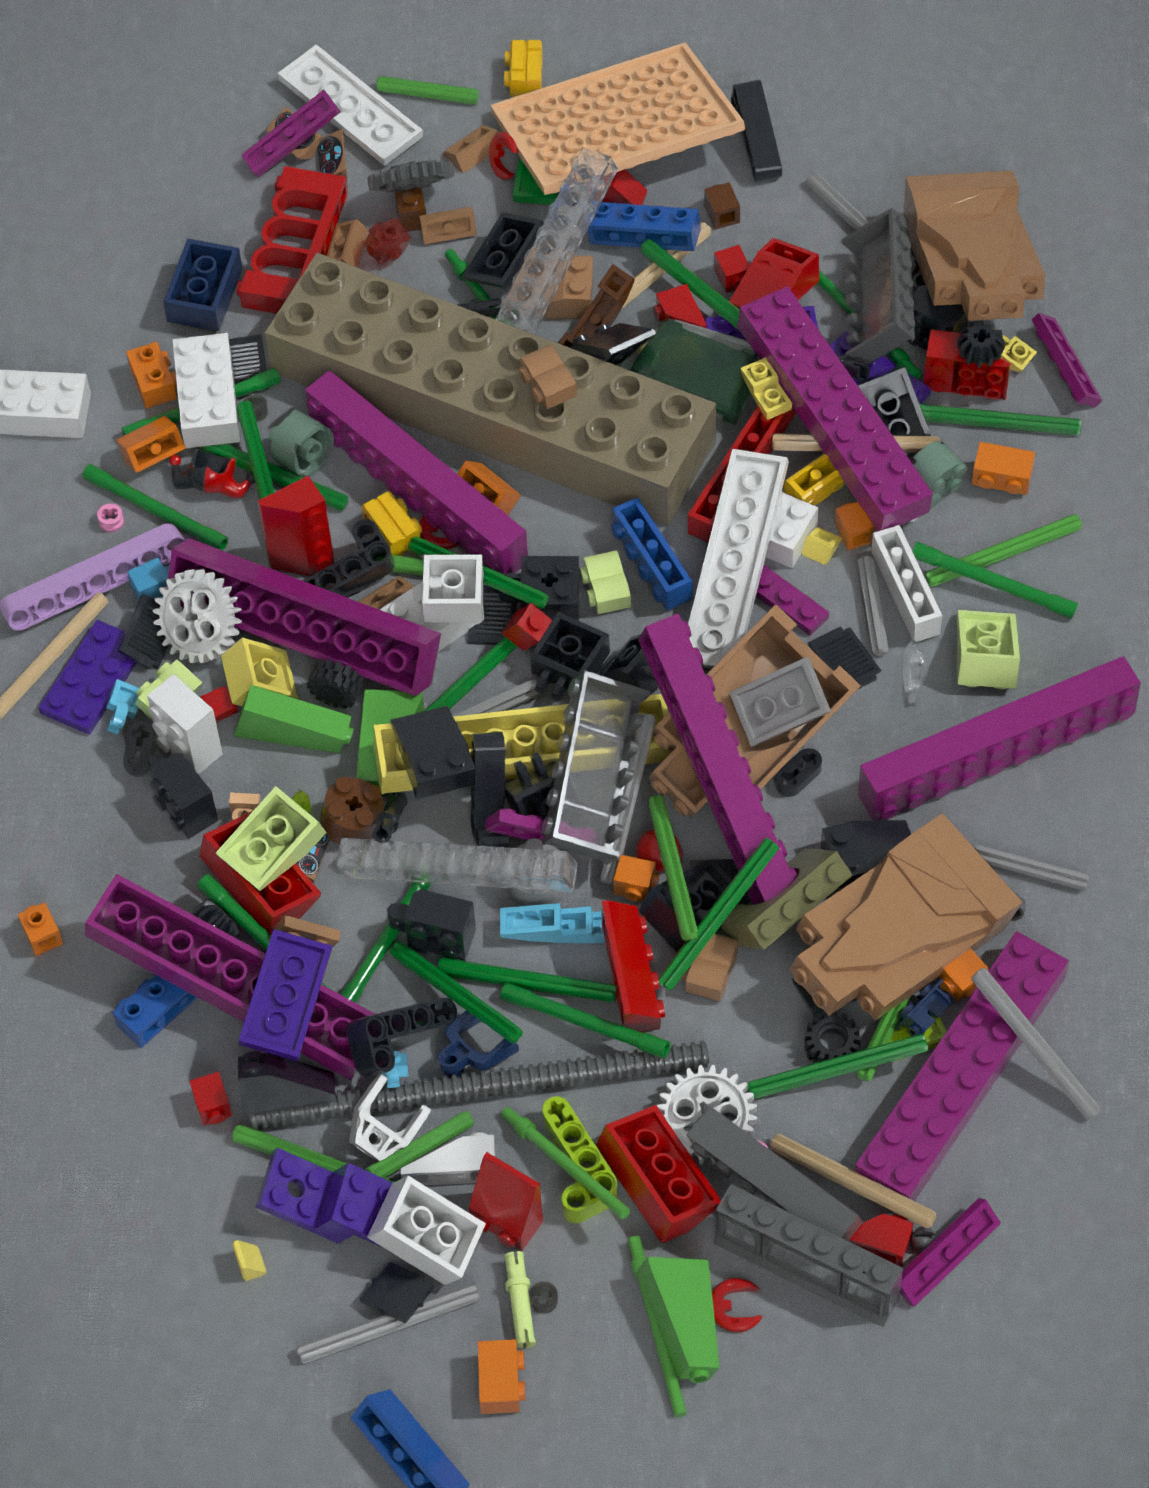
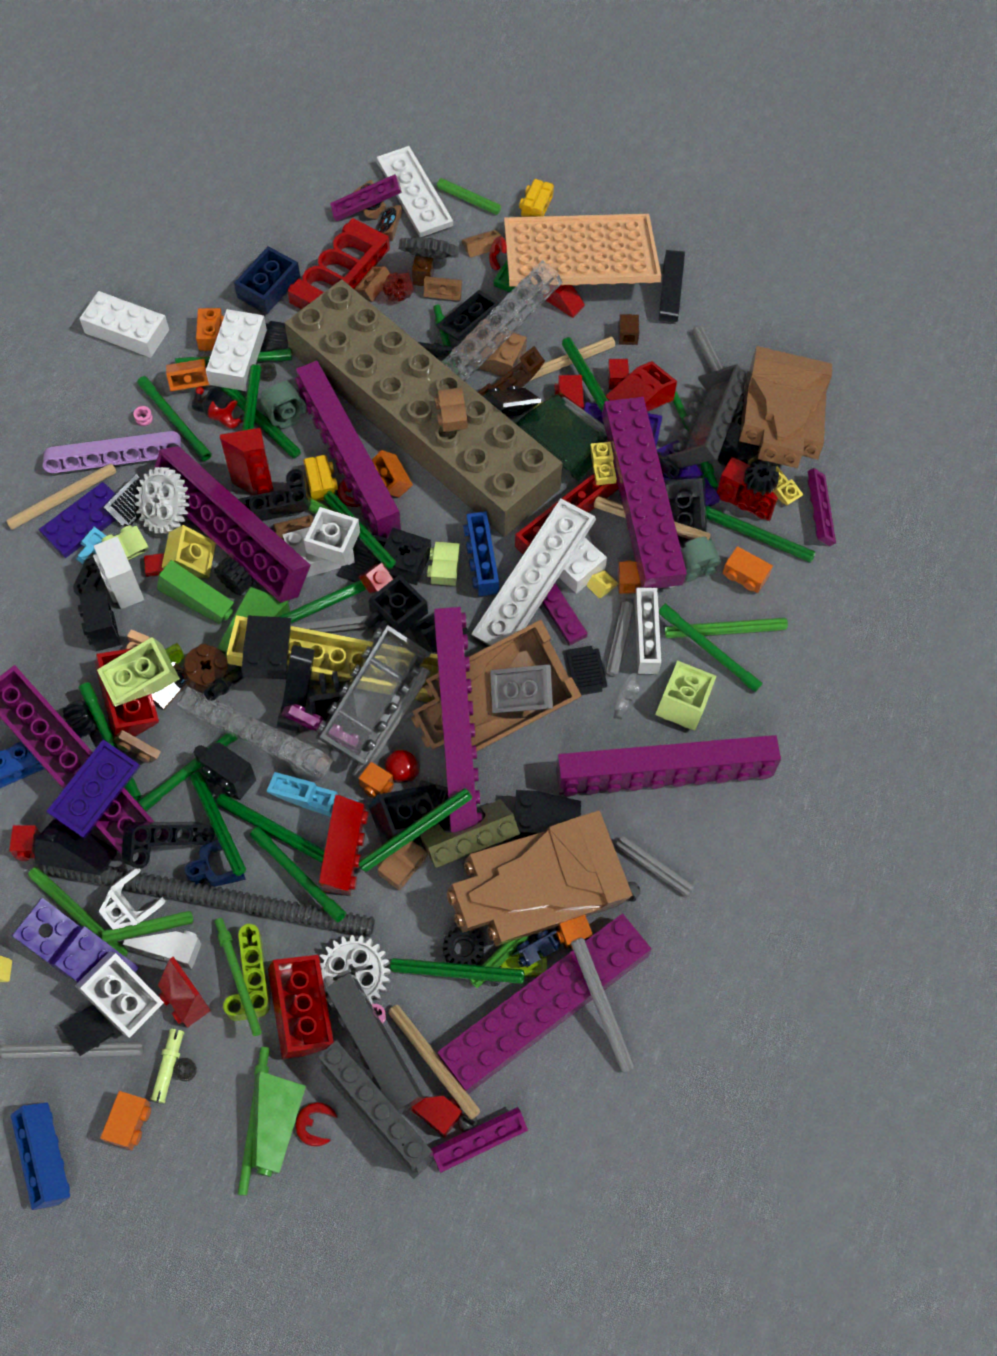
camera: 15 degrees right, 5 degrees up
(148, 578) = (143, 463): dark azure brick -> none
(399, 1070) = (157, 862): medium azure plate -> none
(634, 224) = (564, 323): blue brick -> none
(673, 868) = (399, 785): bright green axle -> none
(794, 768) = (523, 745): black beam -> none
(814, 481) = (611, 538): yellow brick -> none

